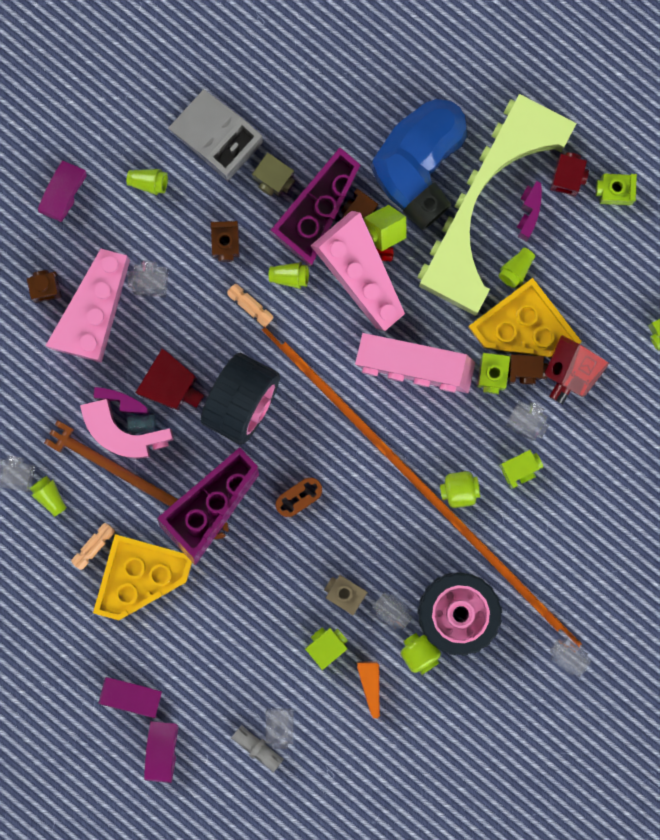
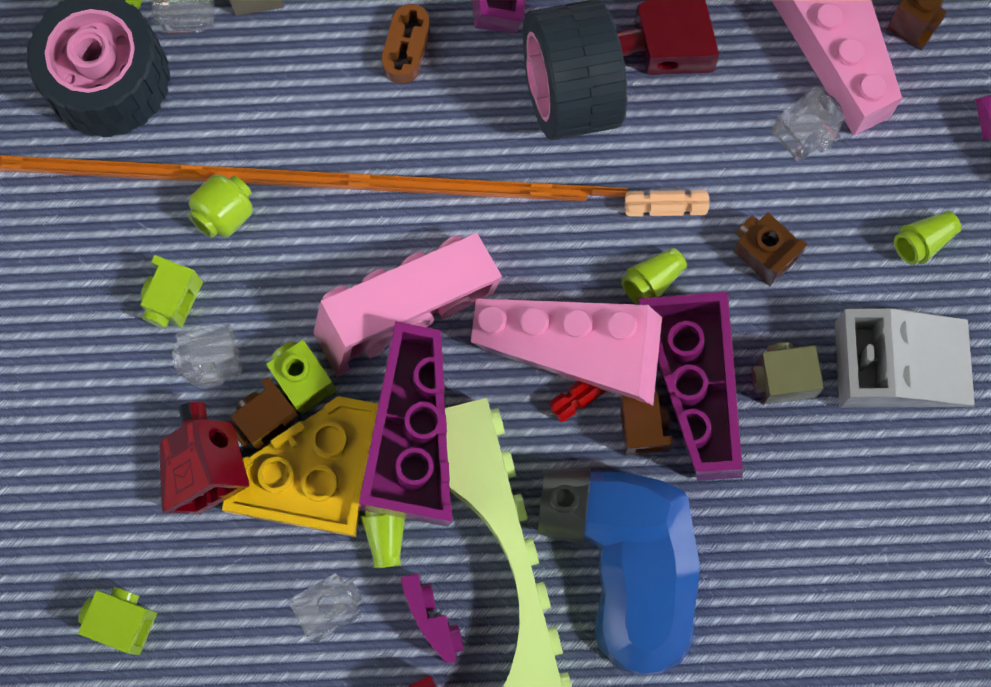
camera: 145 degrees right, 10 degrees down
(386, 227) = (592, 426): lime brick -> none
(473, 290) = (408, 446): none -> magenta wedge
(571, 256) = (327, 607): none -> clear brick

